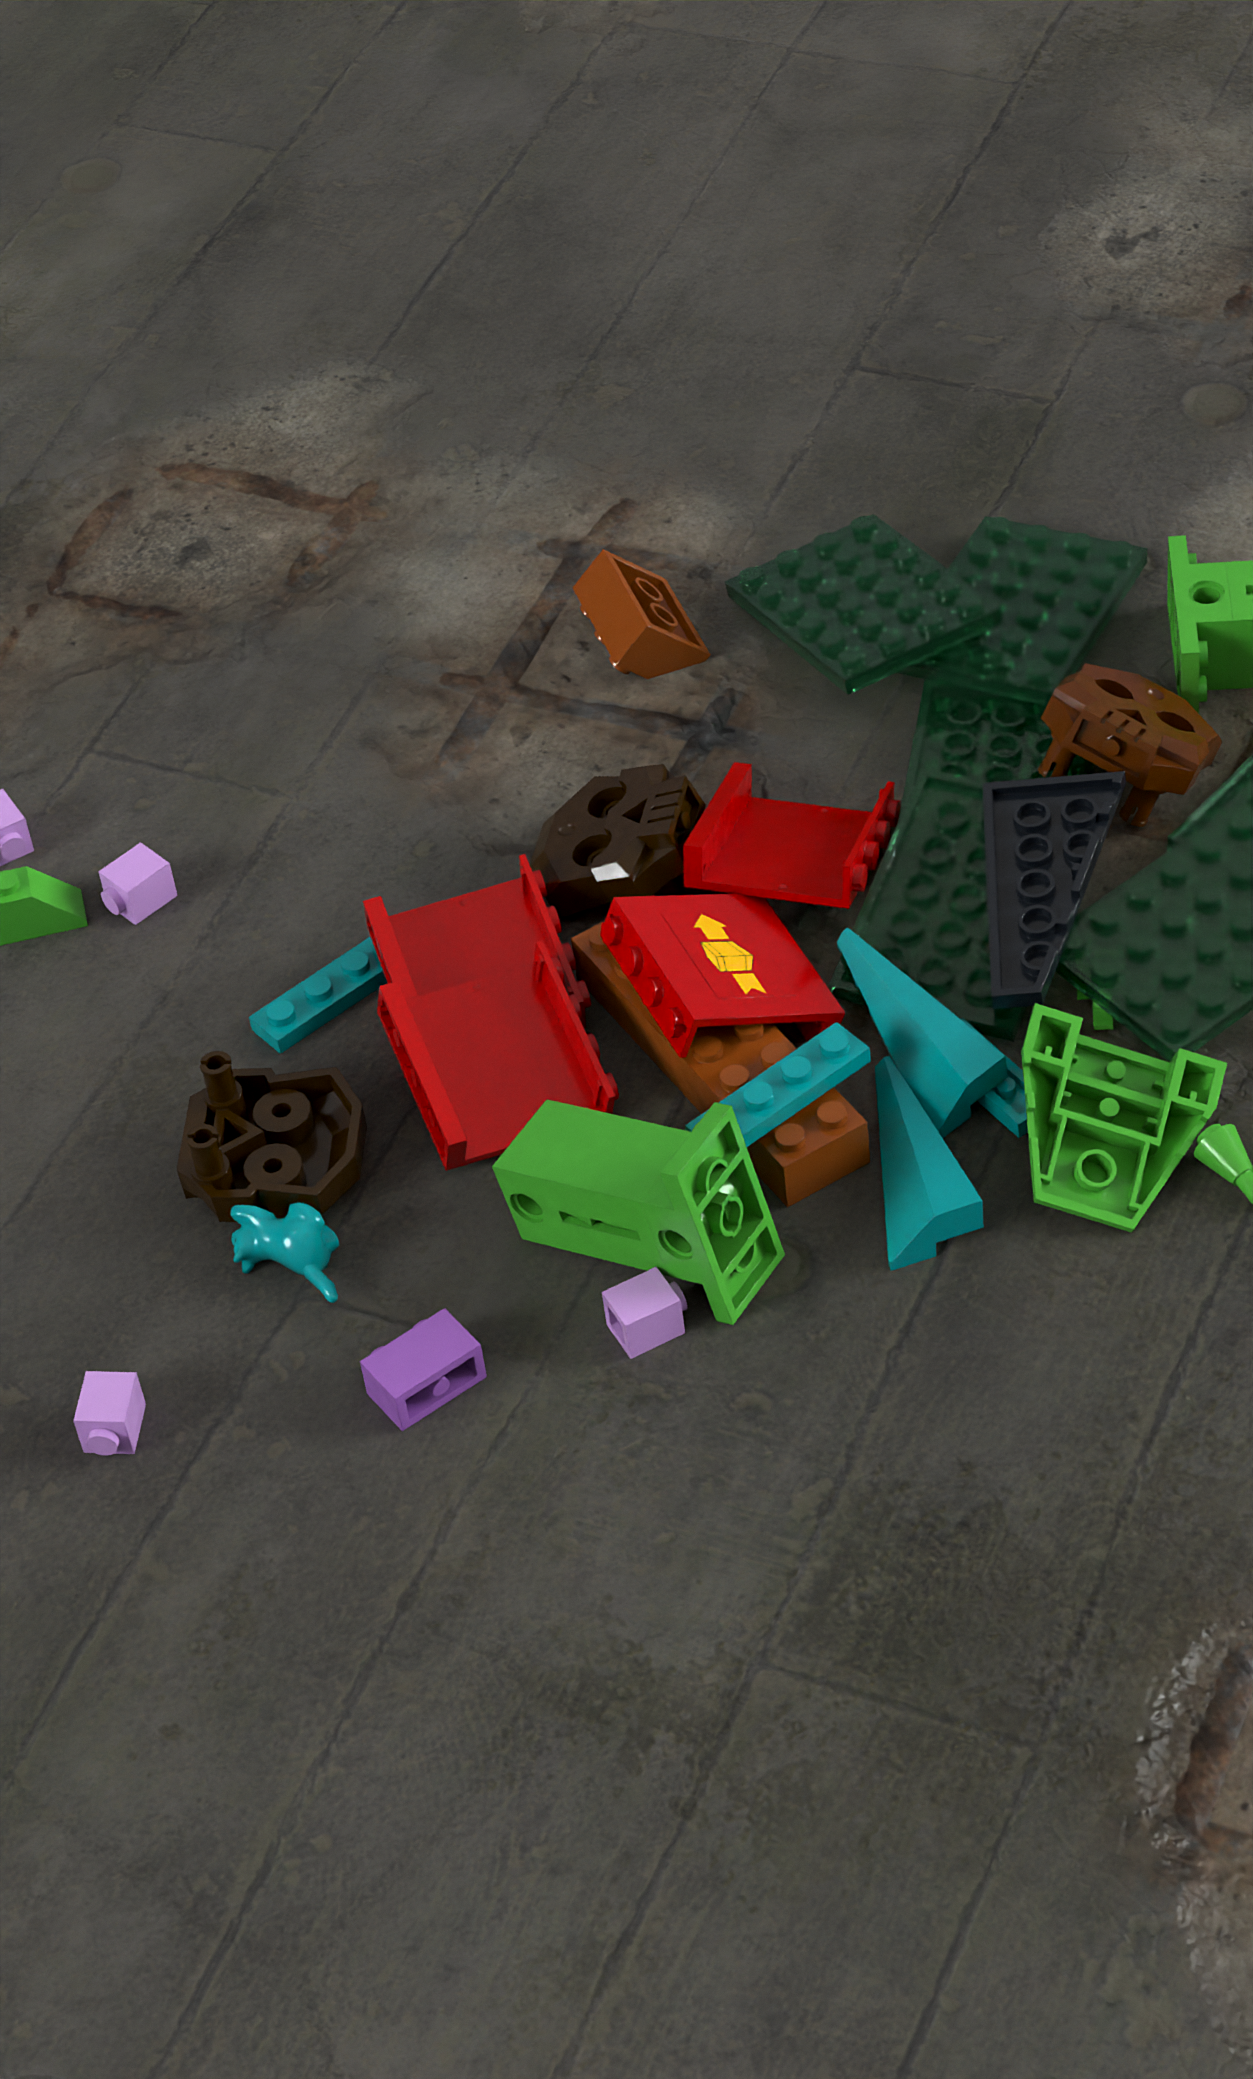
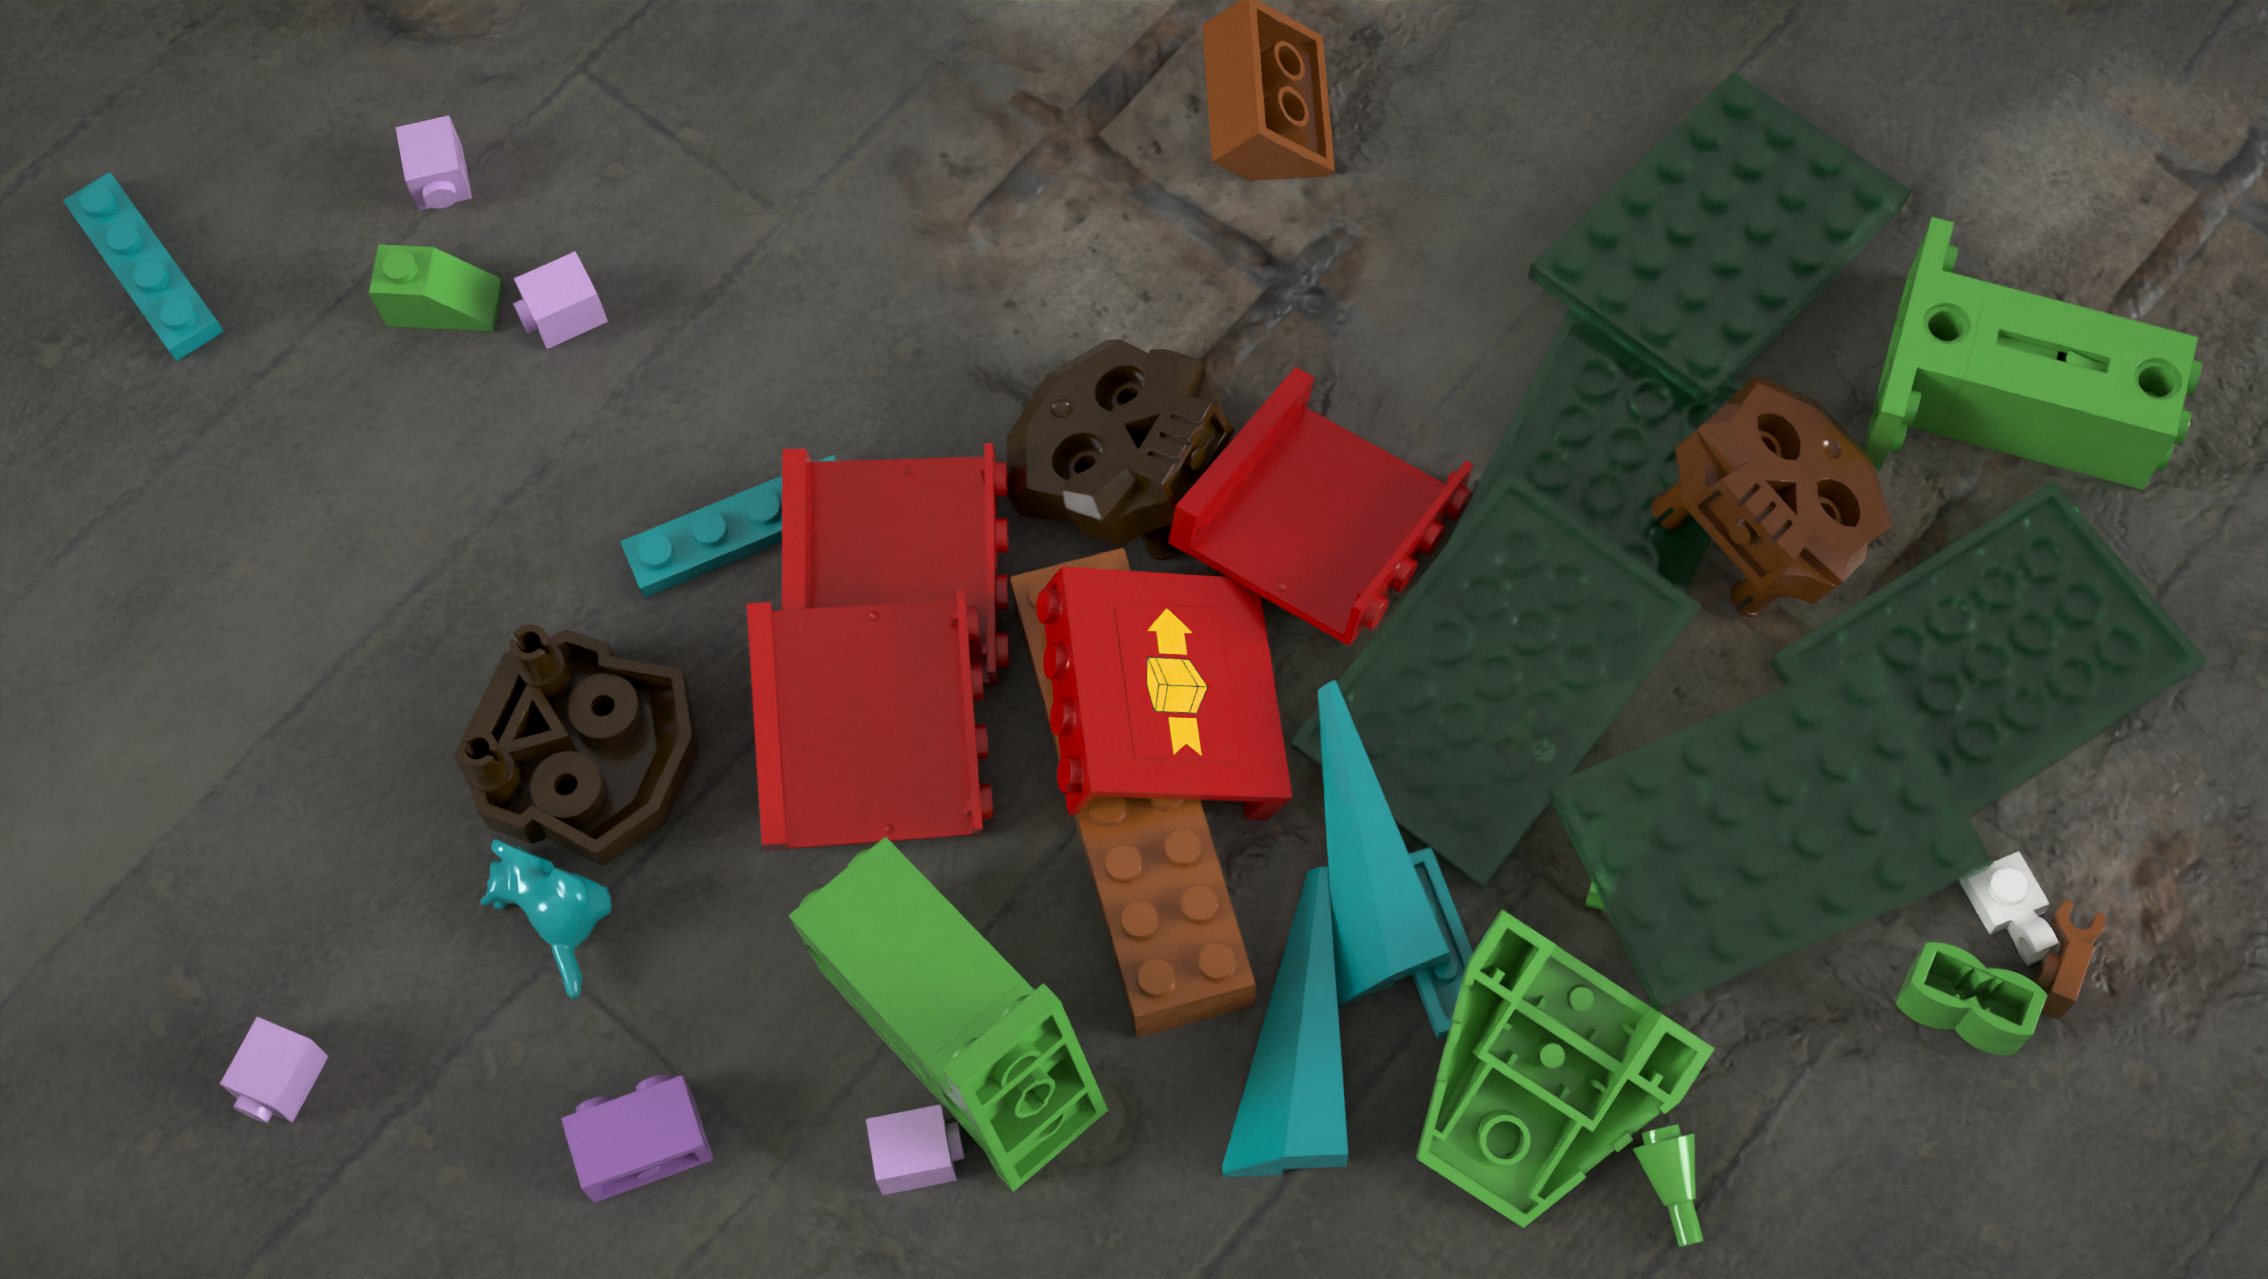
camera: 15 degrees right, 20 degrees up
(795, 1082) = (1161, 915): teal plate -> none
(862, 603) = (1534, 173): clear green plate -> none
(1038, 866) = (1596, 667): black wing -> none

